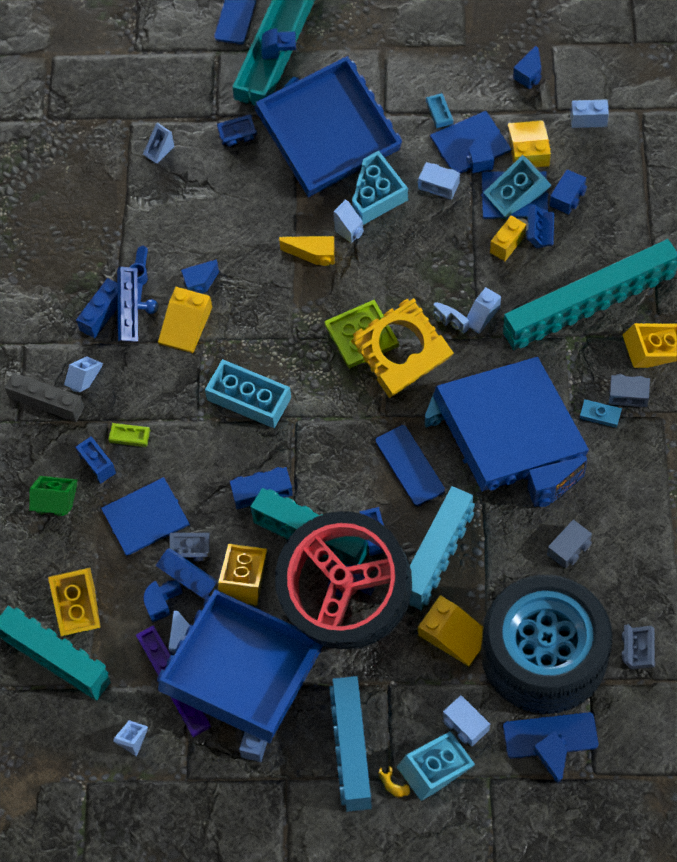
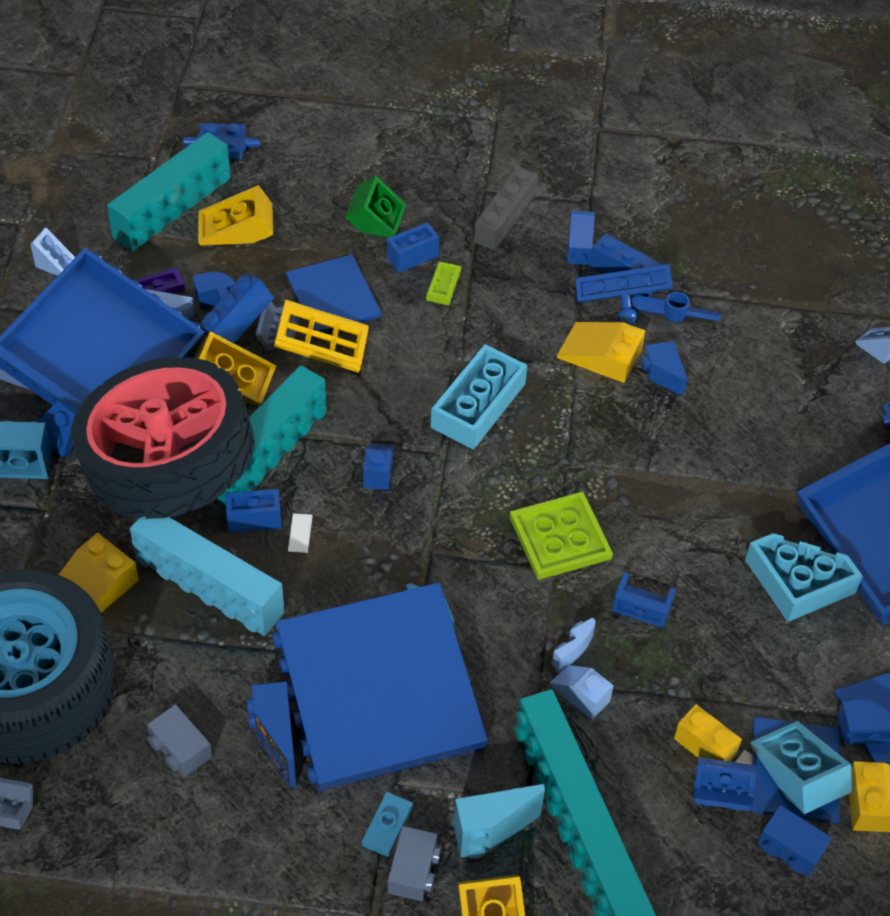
camera: 90 degrees right, 10 degrees down
(80, 339) = (580, 237): none -> blue slope
(82, 373) = (535, 244): light blue slope -> none
(217, 513) = (316, 352): none -> yellow piece
(247, 488) = (344, 401): blue brick -> none
(315, 455) = (377, 466): none -> blue slope
(316, 249) = (701, 495): yellow slope -> none
(318, 680) = (58, 425): none -> blue wing
(347, 222) = (741, 530): light blue slope -> none
(382, 502) = (300, 533): none -> white sticker
(395, 376) = (507, 597): yellow hose -> none
(408, 279) = (642, 603): none -> blue panel
(410, 465) = (349, 571): blue piece -> none
(438, 180) = (818, 662): light blue brick -> none
(593, 346) = (492, 818): none -> medium azure slope

